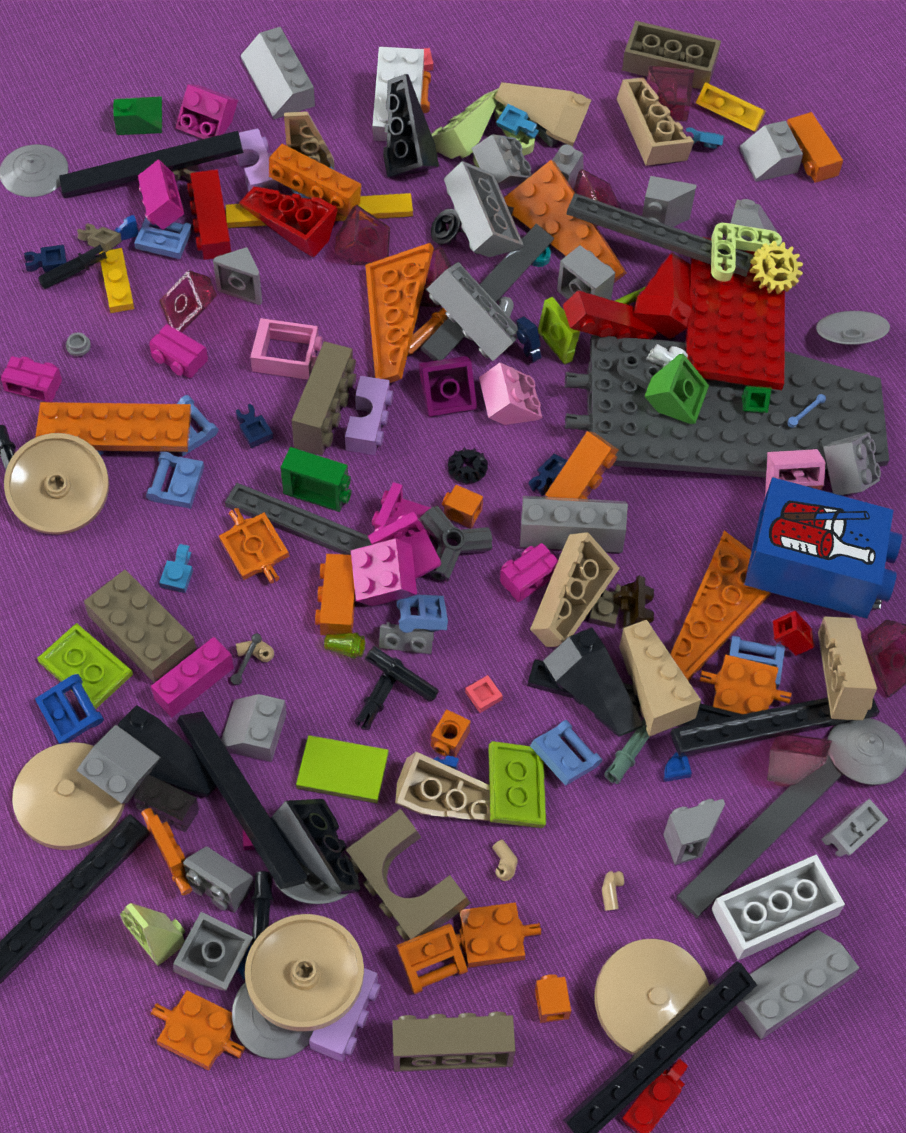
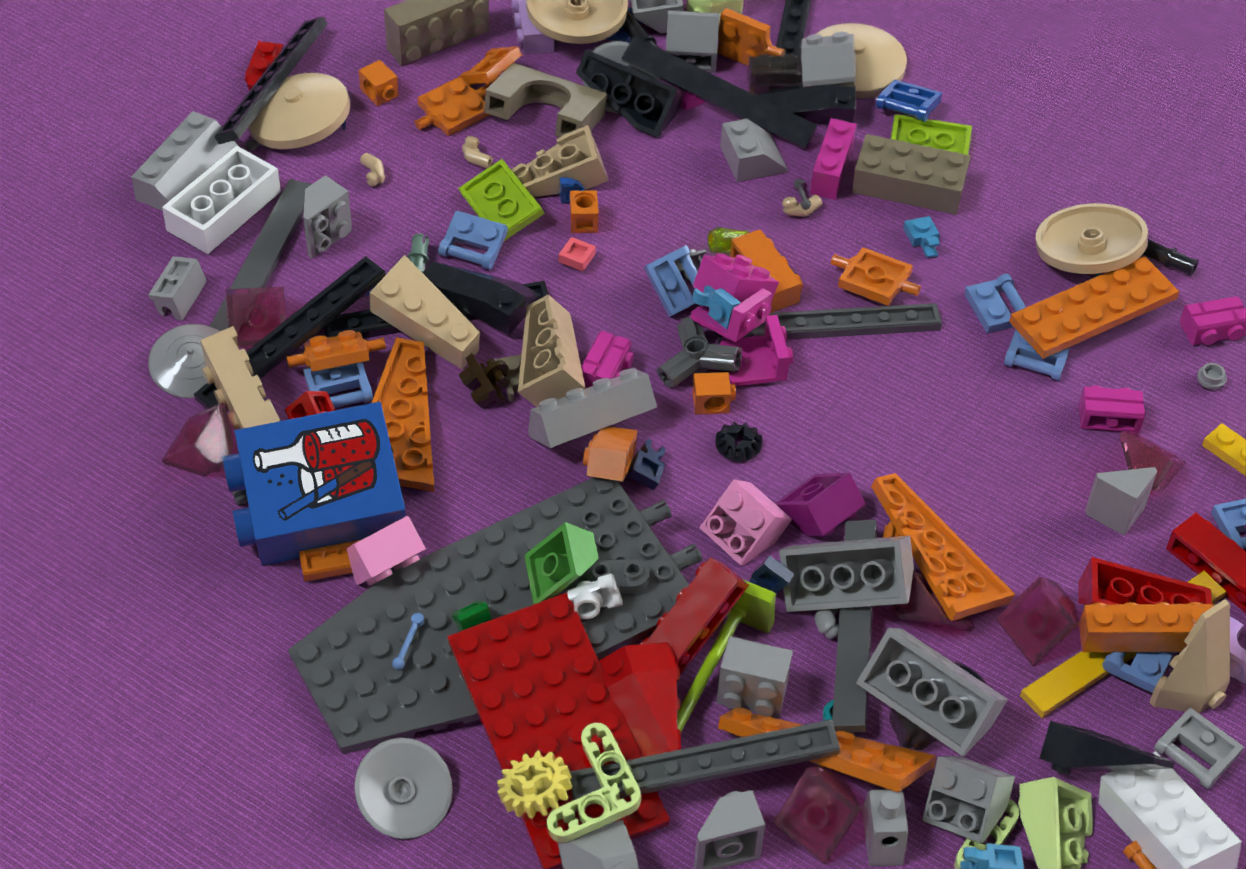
camera: 150 degrees right, 10 degrees down
(254, 428) = (972, 375): dark blue plate -> none
(290, 332) = (1035, 447): bright pink window -> none
(315, 479) = (862, 323): green window -> none
(323, 398) = (926, 415): dark tan brick -> none
(327, 128) = (1205, 741): none -> light grey plate
(342, 769) = (656, 159): lime tile -> none
(365, 432) = (879, 454): lavender arch -> none
(374, 703) = (667, 210): black axle -> none
(402, 674) = (659, 228): black axle -> none
(417, 543) = (719, 301): none -> dark azure plate
(852, 464) = (325, 603): light grey slope -> none

